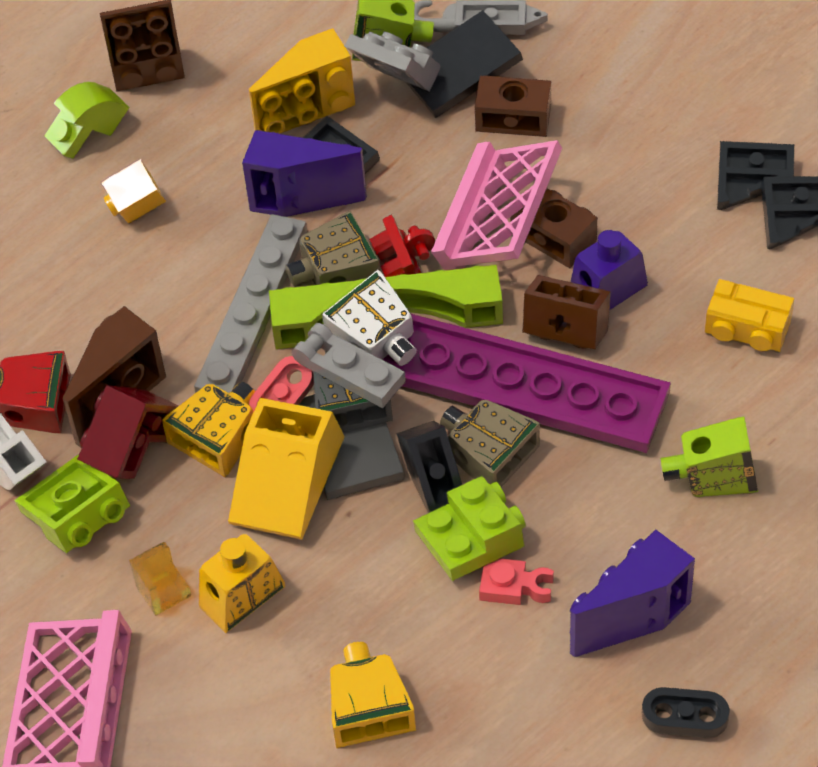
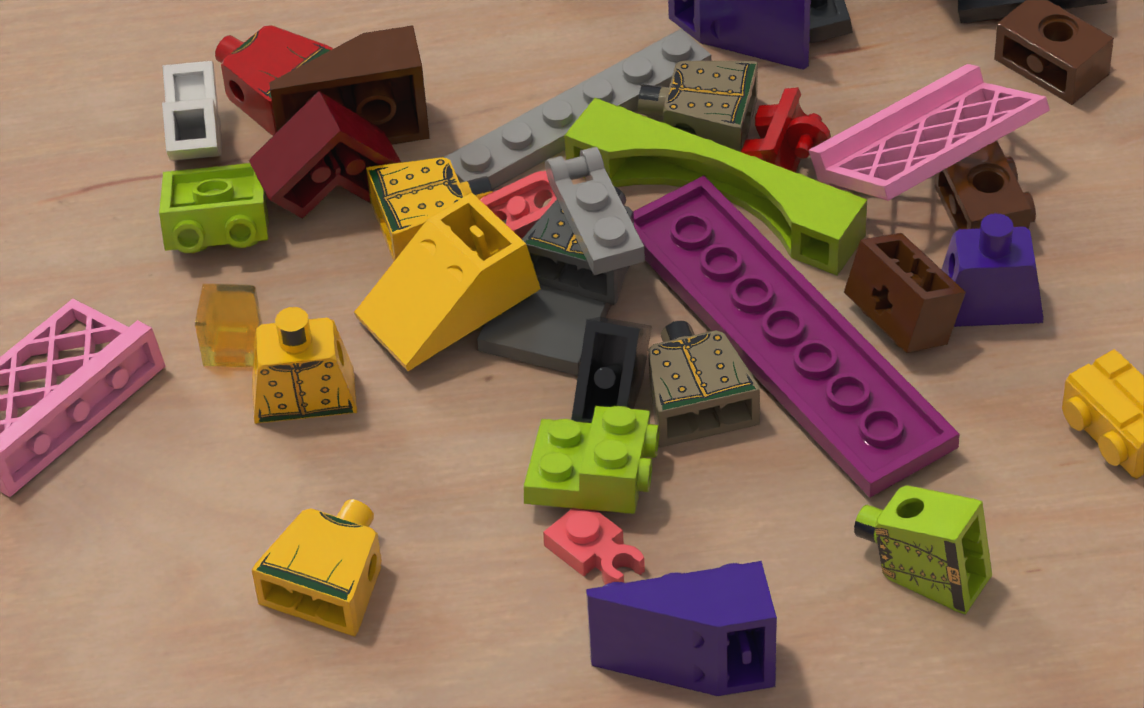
camera: 35 degrees right, 5 degrees down
(373, 320) = (669, 183): white torso -> none

